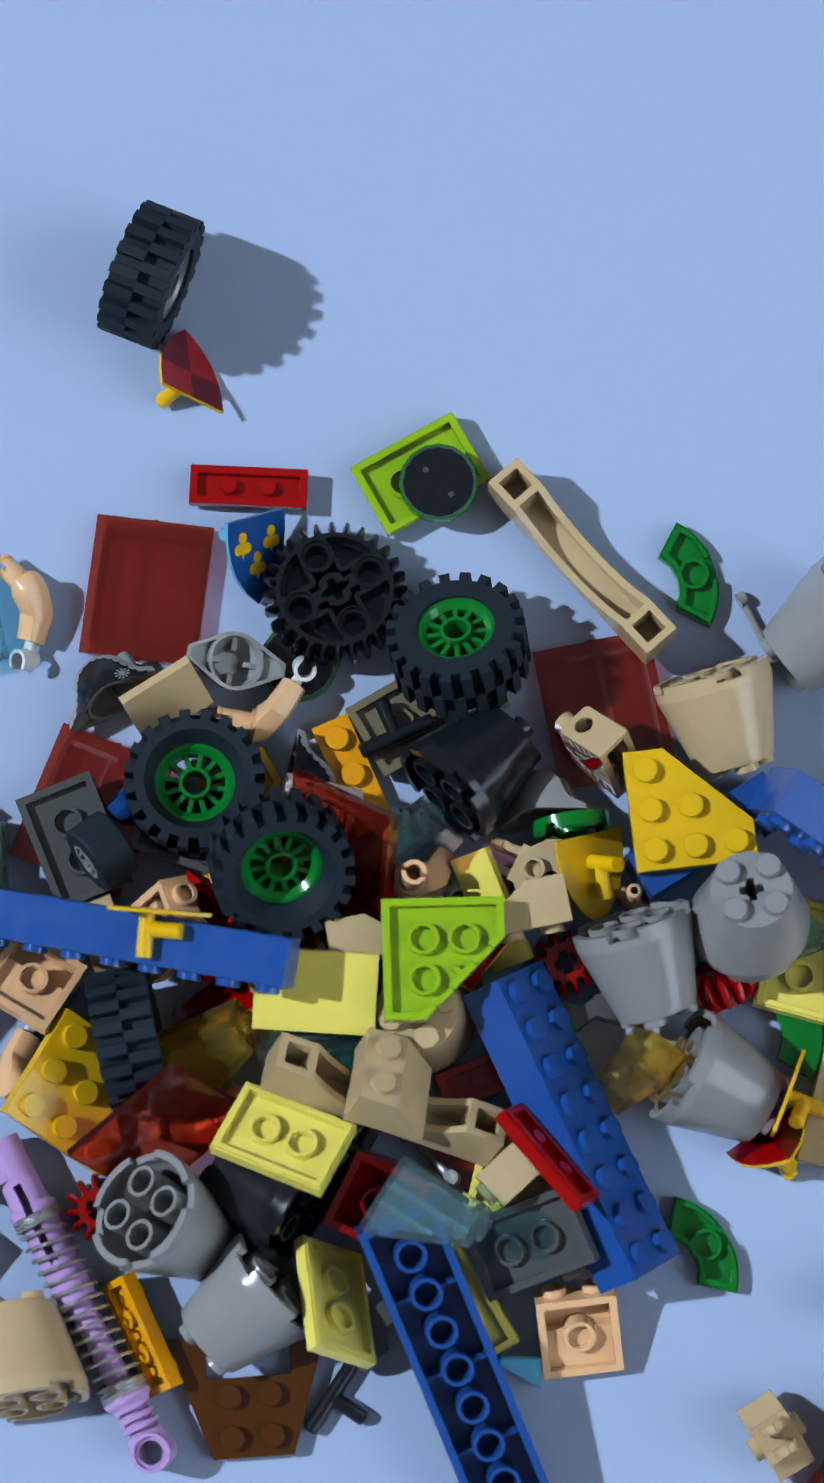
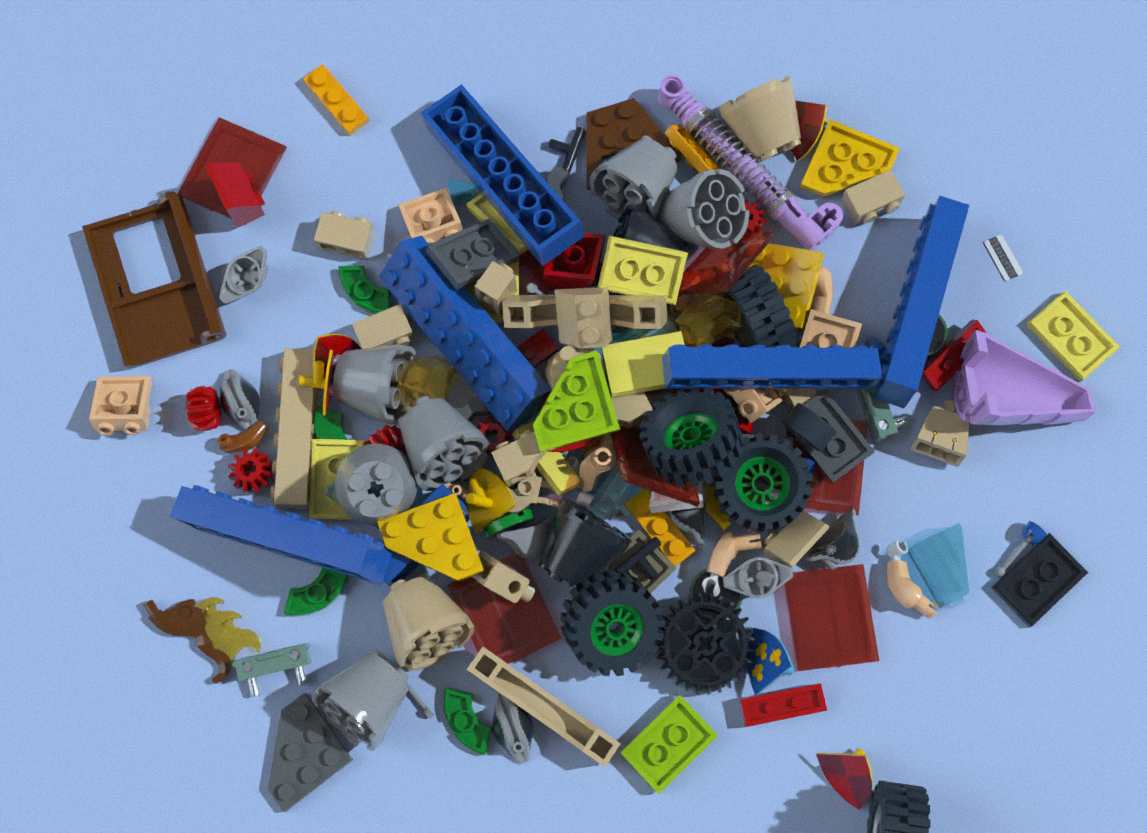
camera: 165 degrees right, 5 degrees down
(150, 929) = (763, 374): yellow shield -> none
(334, 1302) = (585, 190): light yellow tile -> none
(425, 1209) = (541, 241): clear light blue slope -> none
(438, 483) = (654, 738): black tile -> none
(547, 1157) = (472, 298): red tile -> none
(630, 546) = (512, 728): none -> light grey hat
(689, 1167) = (384, 329): none -> tan brick
(717, 1338) = (344, 235): none -> tan brick
(775, 1436) = (297, 186): tan hinge -> none

